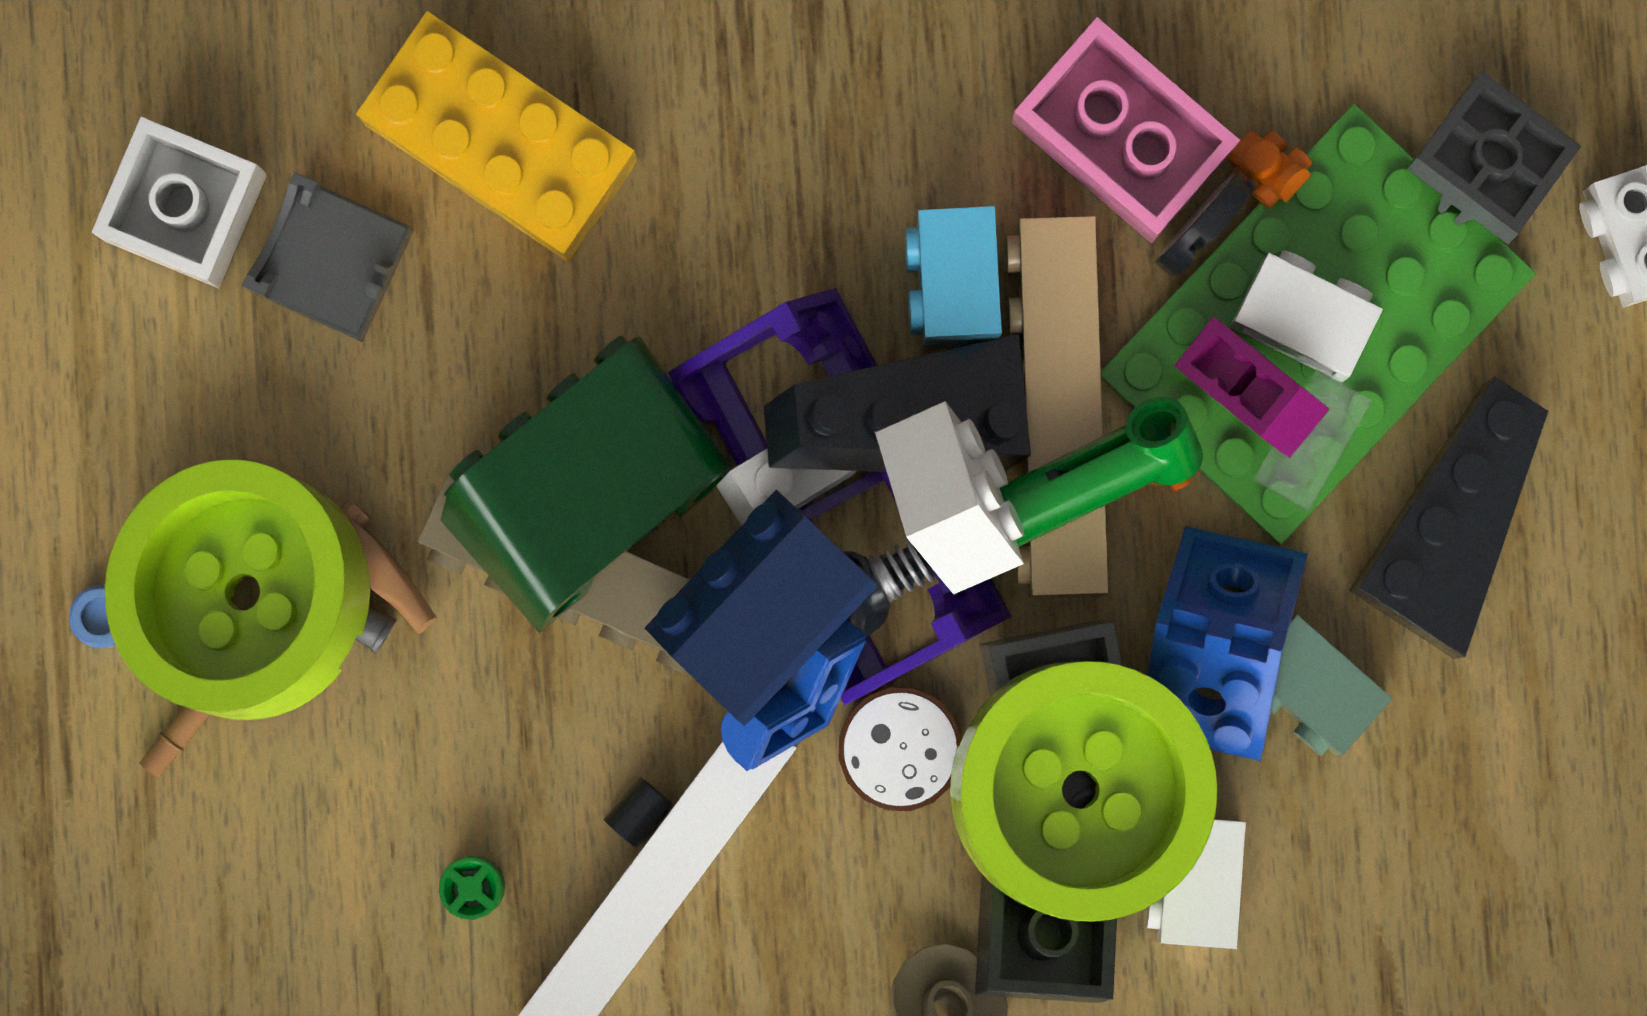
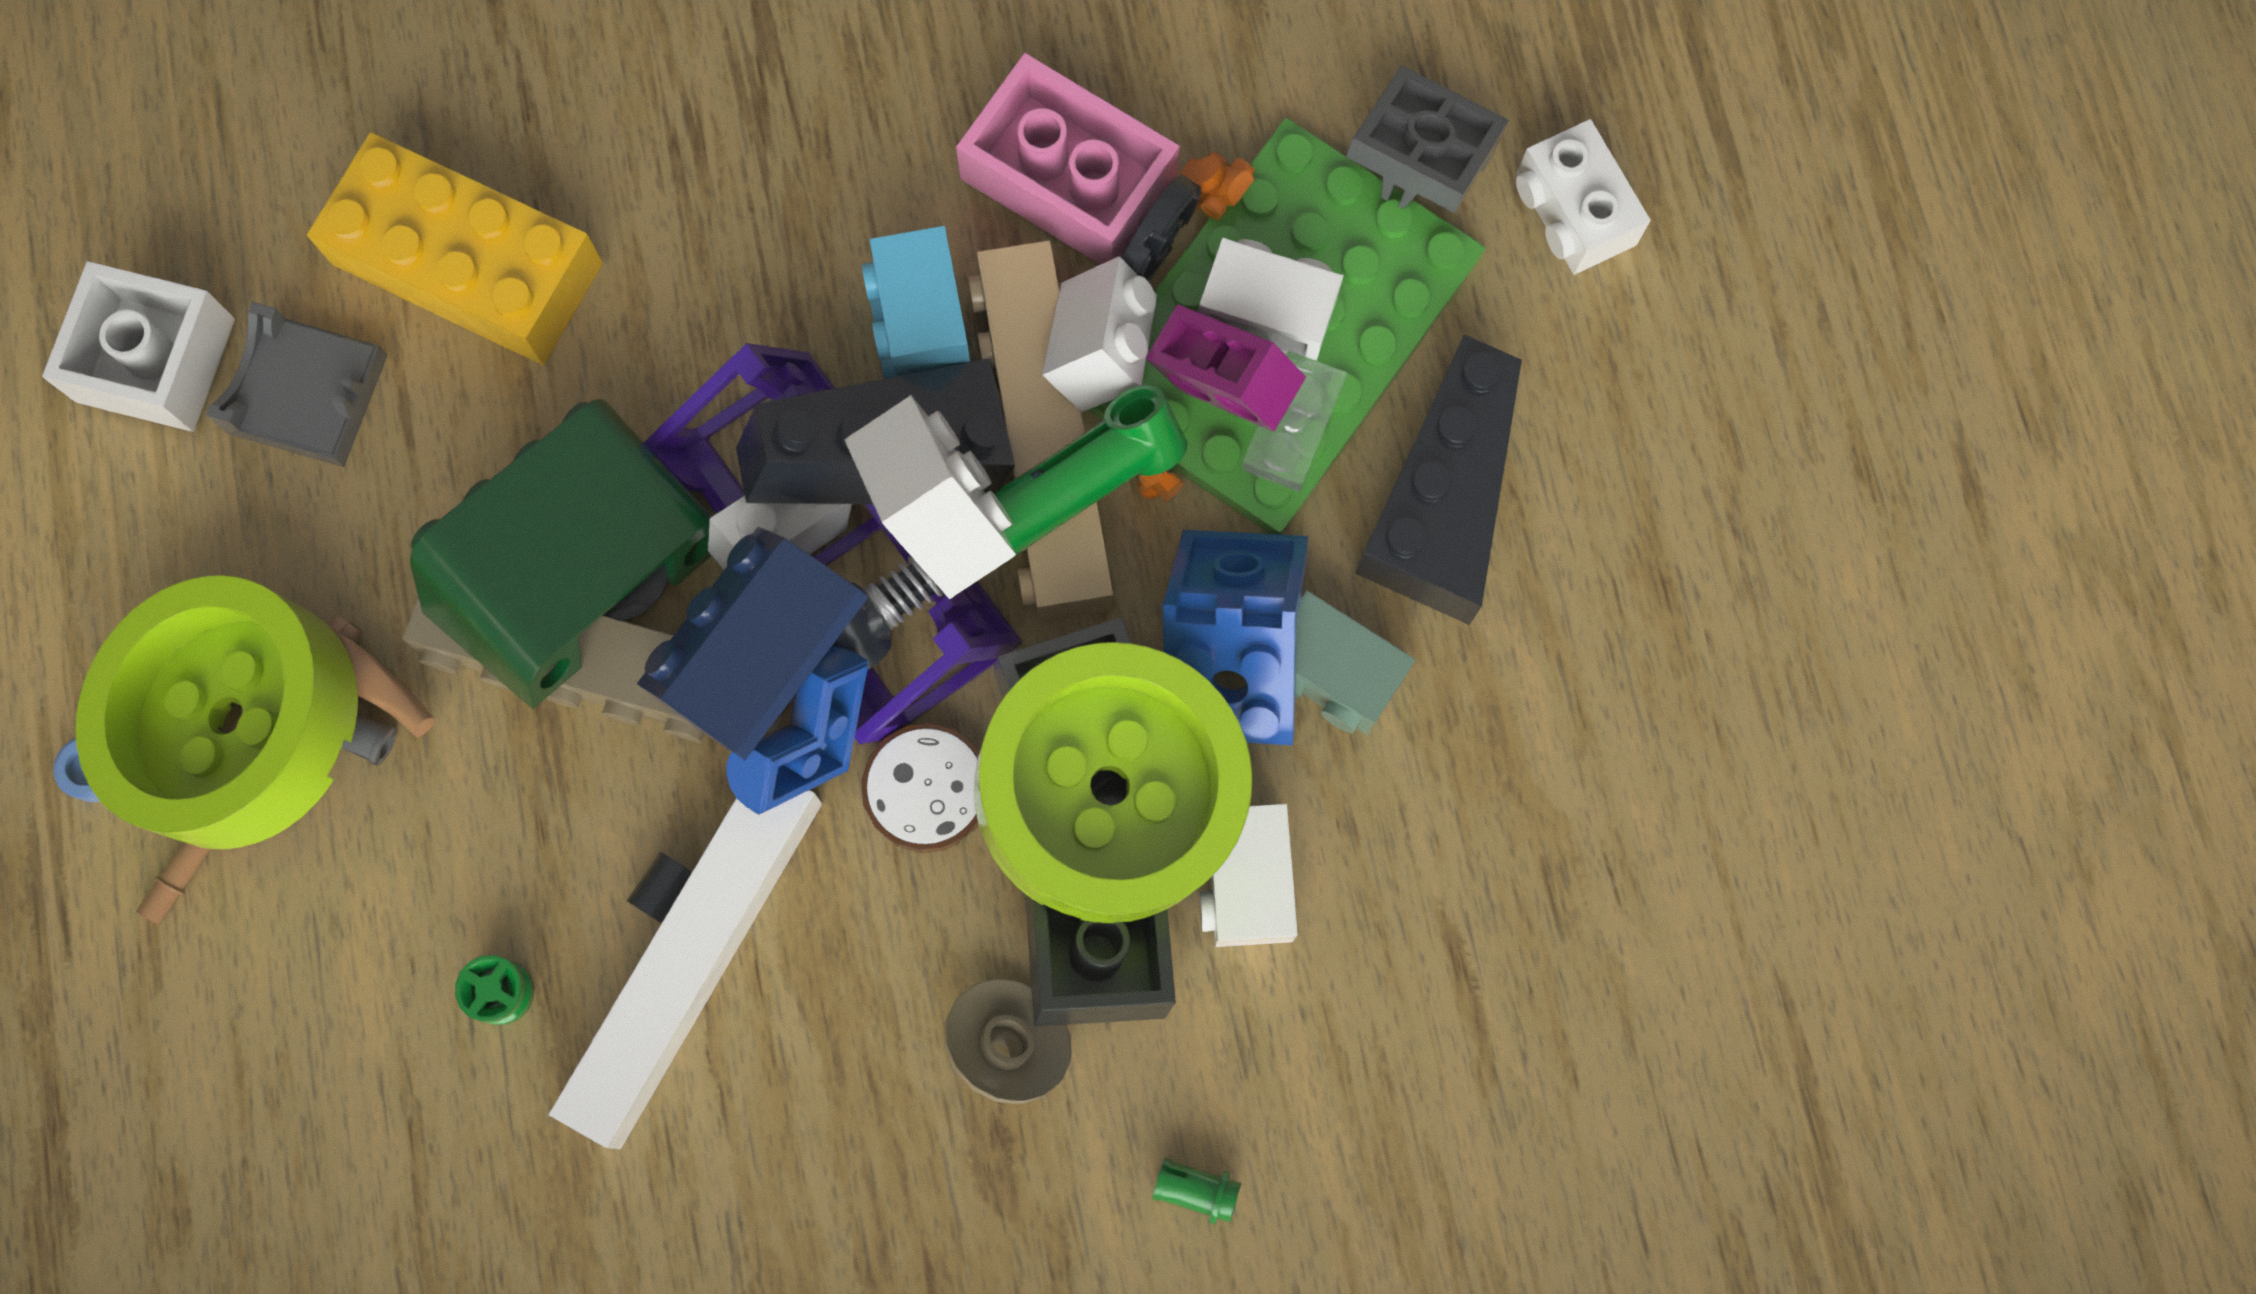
camera: 15 degrees left, 10 degrees down
(1132, 328) = (1100, 334): none -> white brick

